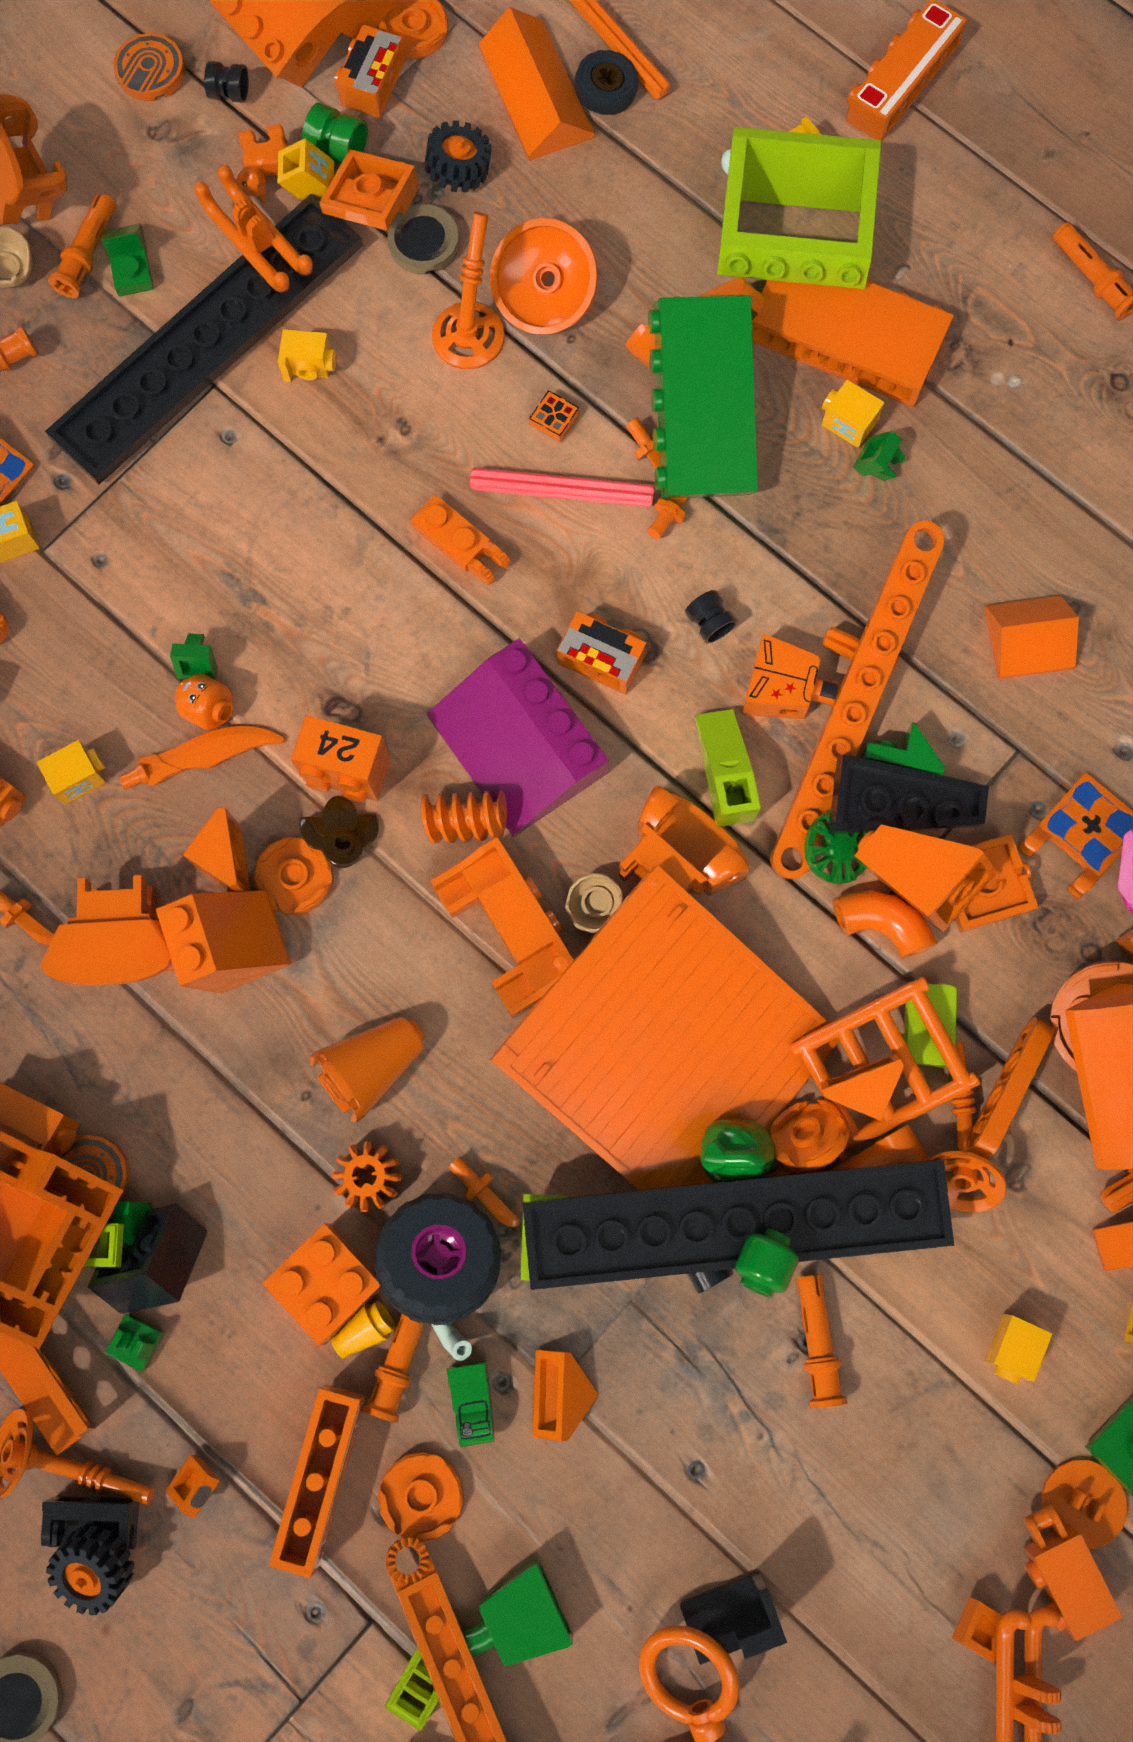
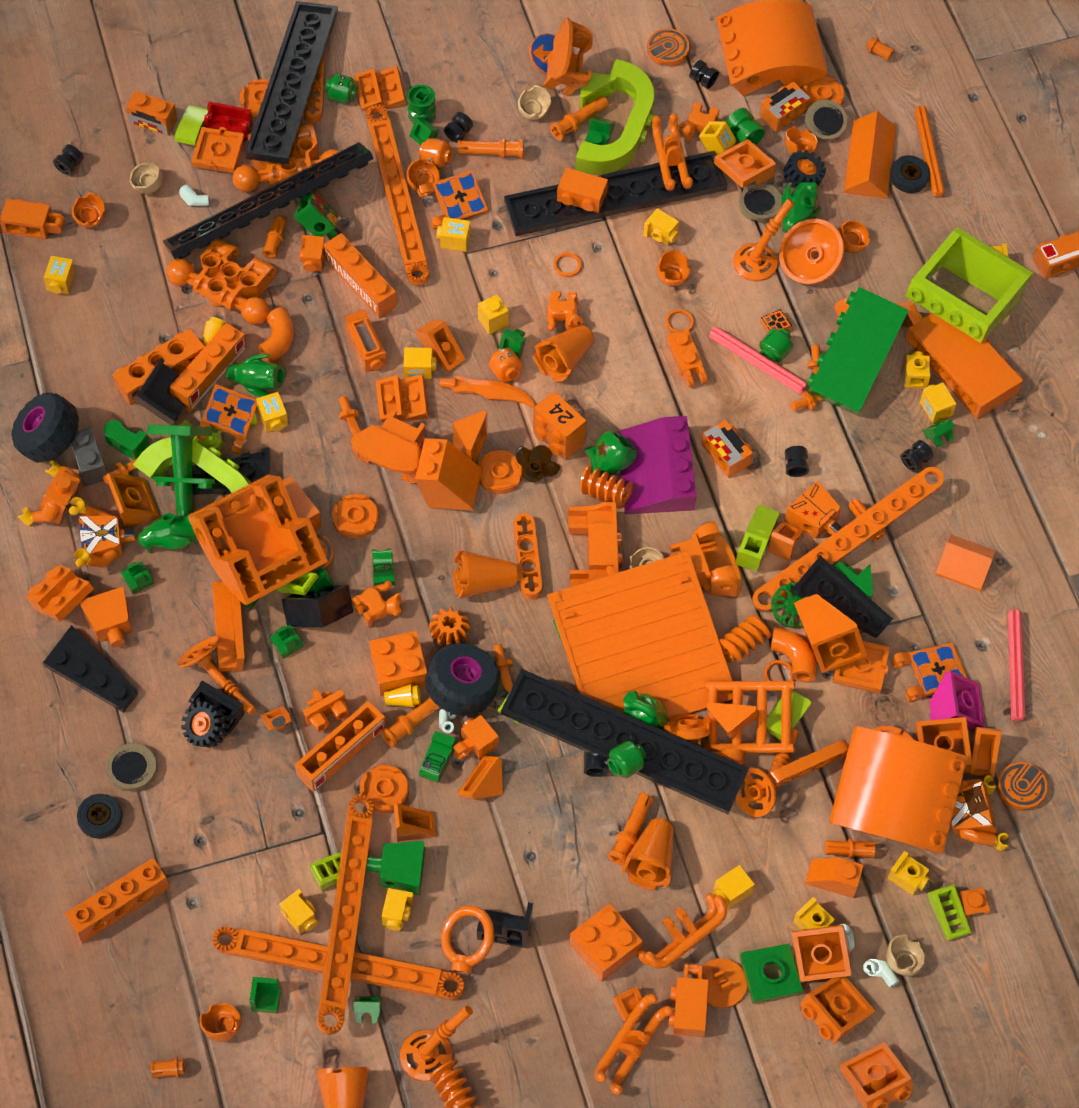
camera: 25 degrees right, 15 degrees down
(81, 840) = (403, 395): none -> orange slope
(84, 180) = (598, 86): none -> lime slope
(88, 721) = (444, 347): none -> orange slope
(120, 1073) = (355, 516): none -> orange tile
(138, 630) = (493, 314): none -> yellow brick
(156, 360) = (582, 190): none -> orange brick
(168, 284) = (612, 157): none -> lime arch
(198, 469) = (567, 254): none -> orange piece
(212, 1141) = (382, 567): none -> green leg
(231, 1202) = (376, 606): none -> orange animal
(238, 566) = (563, 310): none -> orange animal
(251, 1444) = (323, 705): none -> orange hips
(278, 633) = (563, 352): none -> orange cone
(360, 411) = (673, 268): none -> orange hair
(413, 469) = (678, 311): none -> orange piece
(416, 987) = (525, 556): none -> orange beam
(425, 112) = (800, 140): none -> orange hair
(441, 62) = (826, 120): none -> tile
(442, 758) = (611, 453): none -> green piece
(483, 194) = (805, 200): none -> green animal
(499, 1533) = (413, 823): none -> orange slope
(513, 1332) = (476, 737): none -> orange brick
(556, 1693) = (397, 909): none -> yellow brick
(576, 450) = (776, 344): none -> green head
(588, 217) = (854, 236): none -> orange hair
(767, 746) = (785, 540): none -> orange slope
(793, 389) = (916, 370): none -> yellow brick
(802, 941) = (743, 637): none -> orange piece
(873, 507) = (917, 455): none -> black wheel
(876, 984) = (774, 663): none -> orange piece
(876, 1369) = (651, 856): none -> orange cone
(892, 1555) = (605, 942): none -> orange brick
(999, 1473) = (690, 937): none -> orange piece

